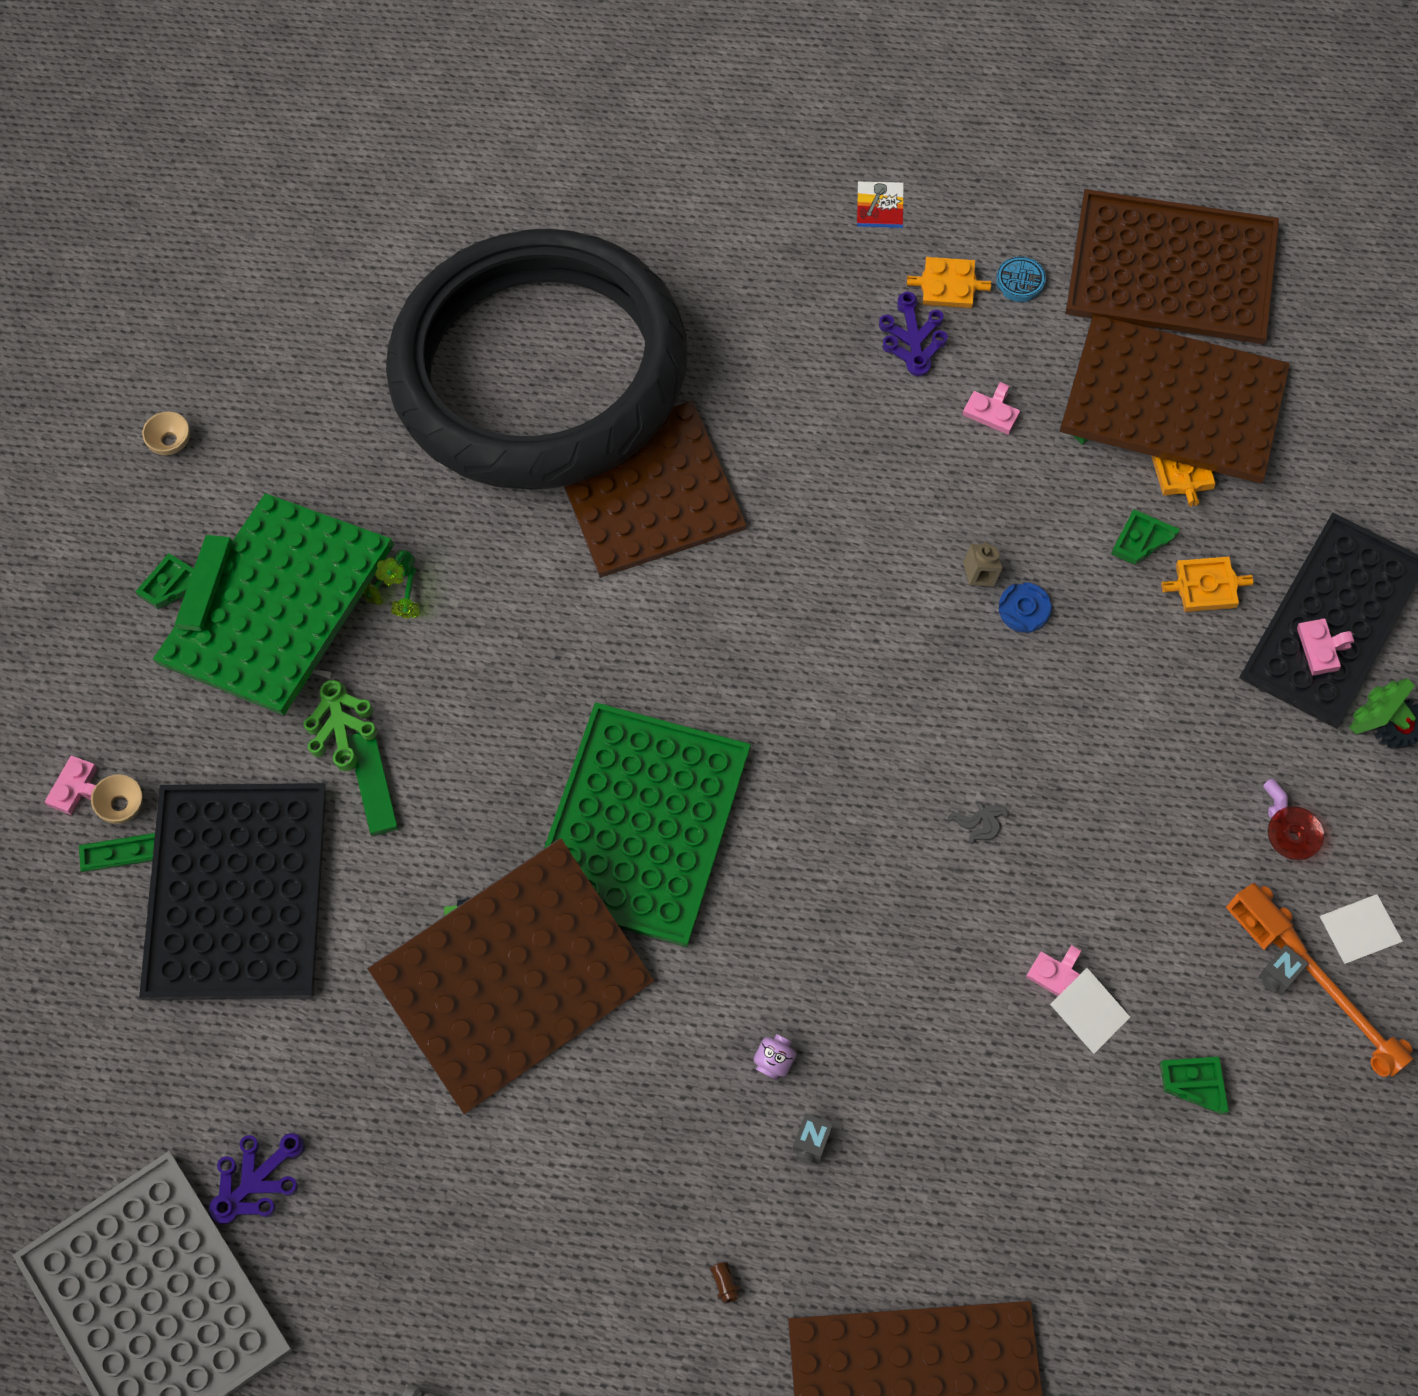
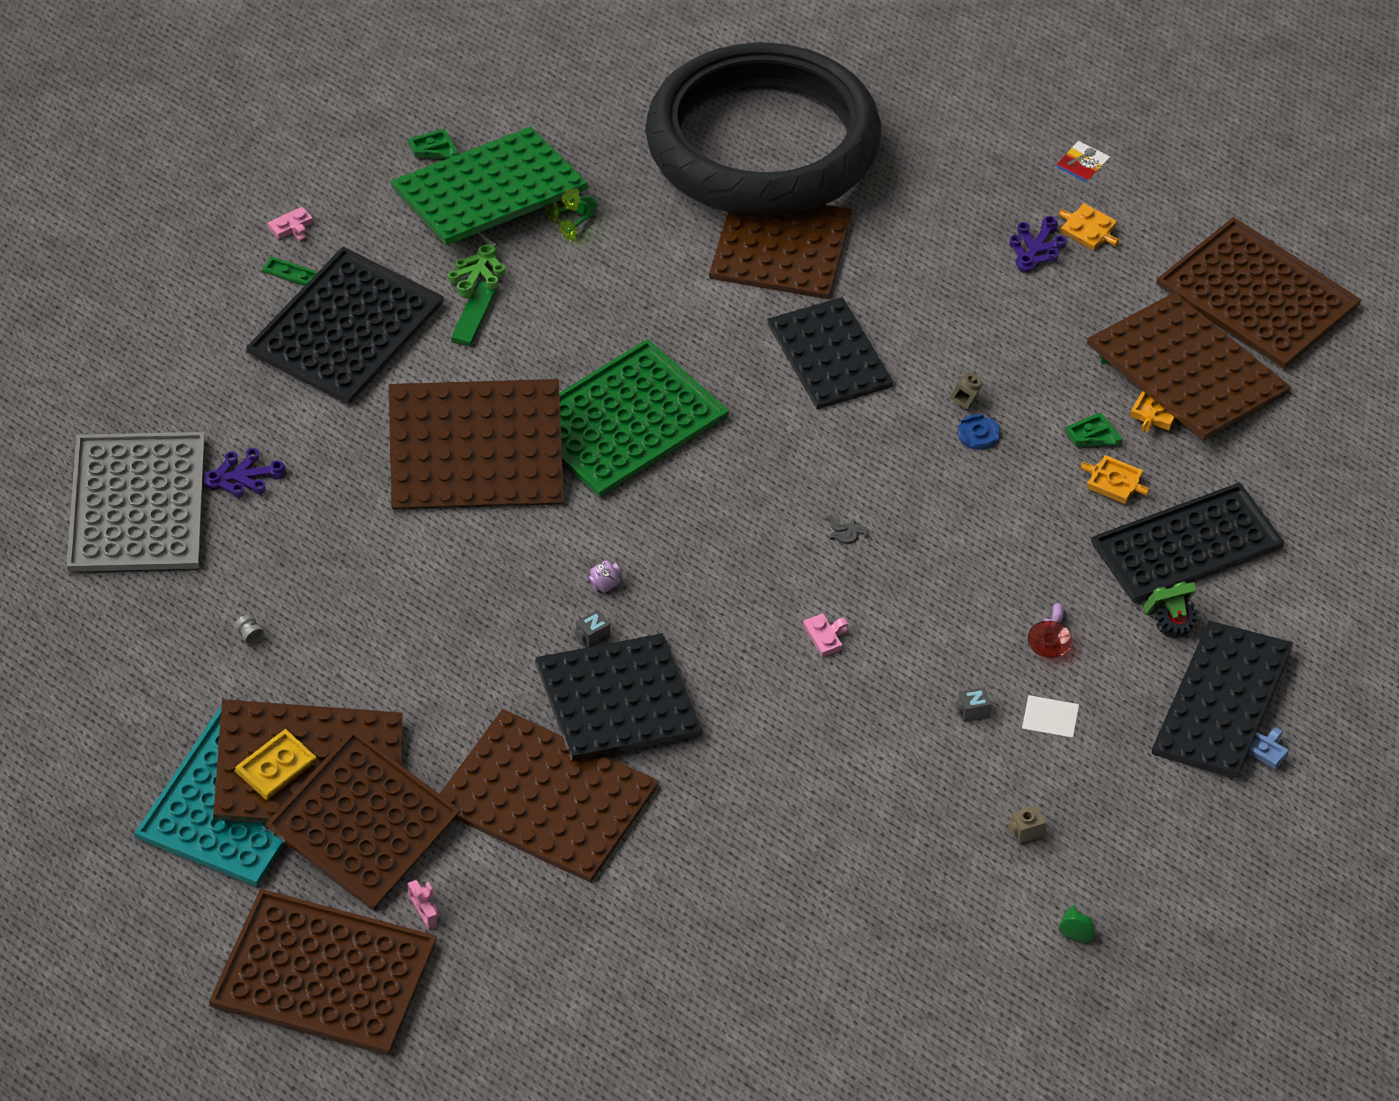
camera: 30 degrees right, 15 degrees down
(109, 790) = (311, 235): tan piece -> none
(163, 425) = (494, 59): tan piece -> none
(203, 583) = (453, 152): green tile -> none
(726, 1286) = (478, 676): reddish brown pin -> none
(799, 599) = (830, 353): none -> black plate
(905, 1217) = (617, 697): none -> black plate
(992, 410) = (1053, 314): bright pink plate -> none
(1020, 279) = (1142, 249): dark azure tile -> none
(1090, 1010) = (827, 660): white sticker -> none
(1196, 1082) = (864, 731): green wing -> none
(1270, 926) = (985, 672): orange bar -> none
(1321, 647) = (1160, 546): bright pink plate -> none

